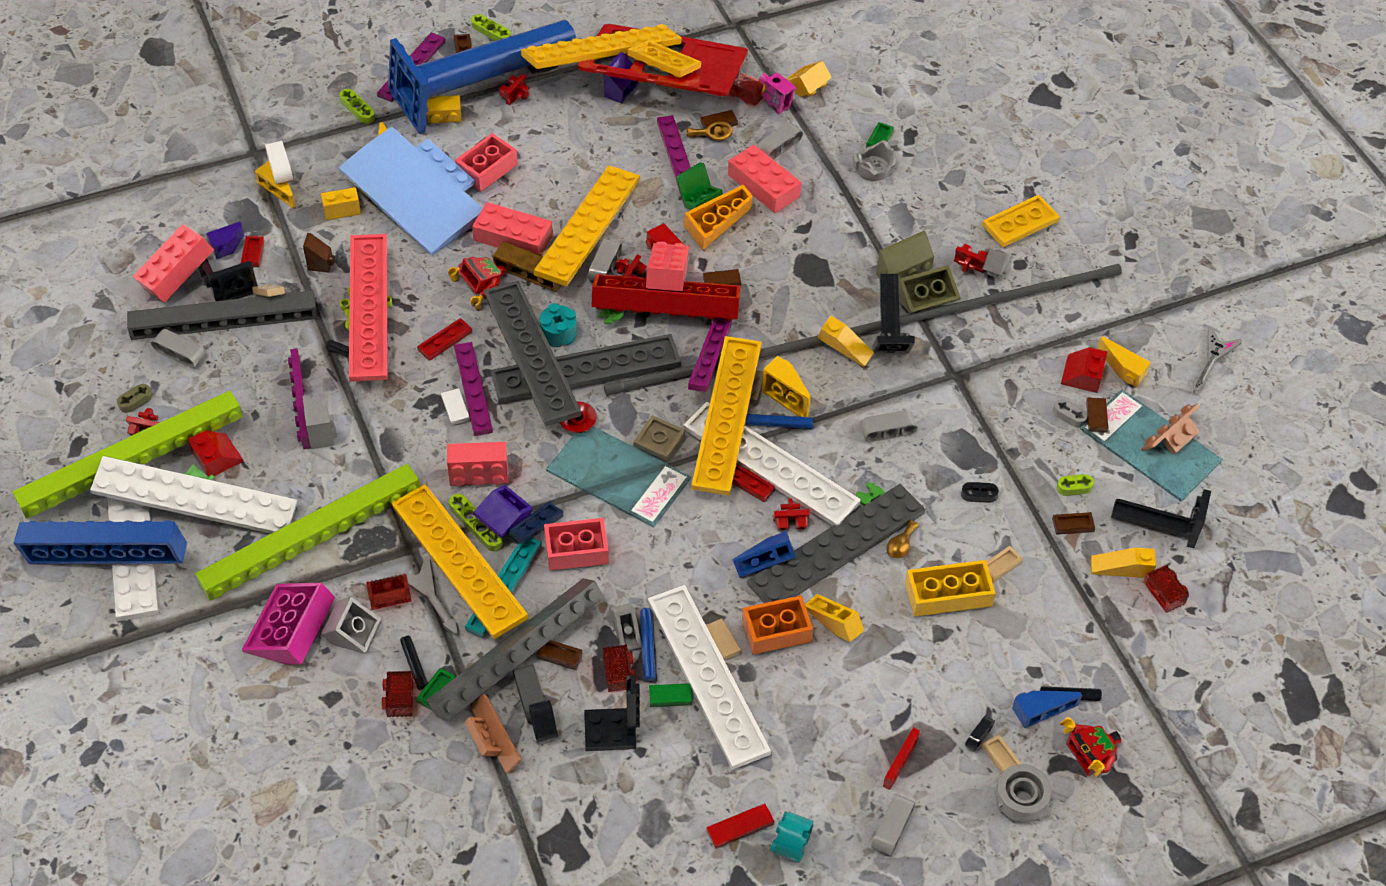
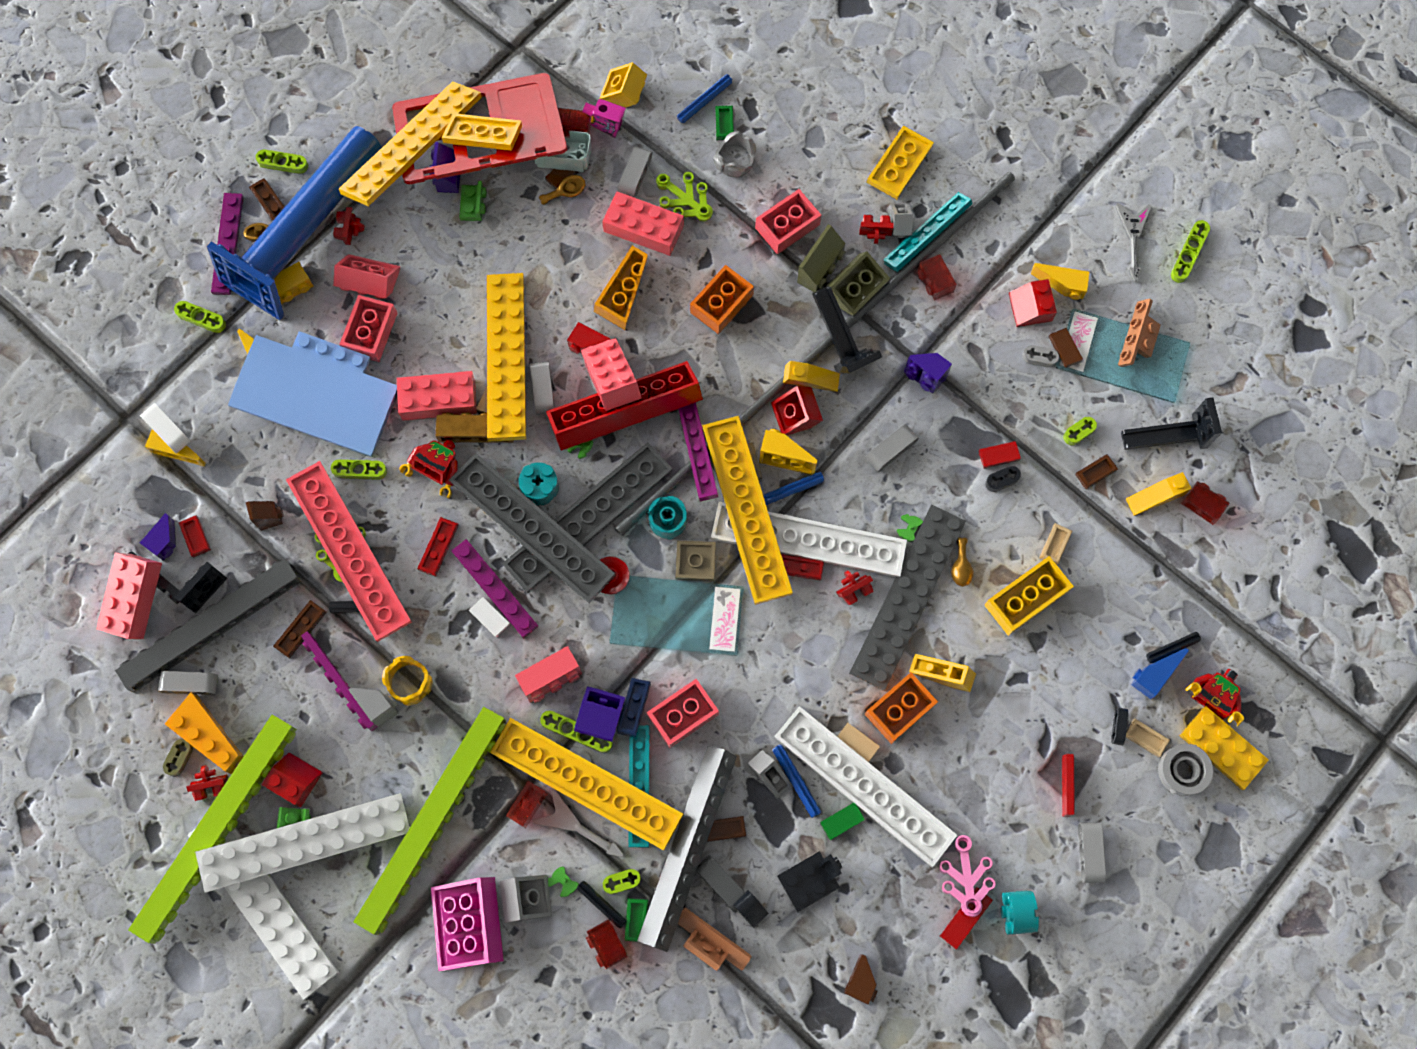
camera: 25 degrees left, 20 degrees up
(101, 542) = (246, 940): blue brick -> none
(165, 382) = (201, 730): none -> light orange wedge
(268, 290) = (240, 578): tan tile -> none
(305, 345) = (304, 622): none -> reddish brown tile
(340, 203) = (248, 439): yellow slope -> none
(354, 435) = (398, 663): none -> yellow piece
(388, 591) = (541, 849): clear red brick -> none
(394, 634) = (560, 876): none -> bright green piece
(397, 553) = (526, 804): none -> clear red brick
(409, 252) = (344, 474): none -> lime beam
(442, 653) = (619, 877): none -> lime beam
(507, 127) = (365, 276): none -> coral slope
(608, 829) = (862, 982): none -> reddish brown slope
(617, 667) = (785, 819): clear red brick -> none
(629, 112) = (472, 202): none -> bright green bracket
(636, 266) = (569, 386): red hips -> none
(654, 393) = (667, 507): none -> teal brick
(673, 145) = (544, 231): magenta plate -> none
(696, 186) = (588, 267): green bracket -> none
(728, 277) = (661, 356): reddish brown tile -> none
(733, 113) = (574, 159): none -> light aqua axle
(760, 792) = (967, 880): none -> bright pink plant
(765, 554) = (855, 637): blue slope -> none
(799, 256) = (721, 299): none -> orange brick
(819, 363) = (797, 410): none -> red slope
(821, 191) = (686, 199): none -> lime plant
(872, 114) = (704, 99): none -> blue axle
(891, 222) = (788, 221): none -> coral brick
(955, 377) = (928, 370): none -> dark purple slope
(987, 472) = (999, 454): none -> red tile
(1005, 315) = (936, 277): none -> clear red brick
(1016, 279) = (927, 231): none -> teal plate
(1077, 799) = (1225, 747): none -> yellow plate
(1284, 375) = (1190, 251): none -> lime beam

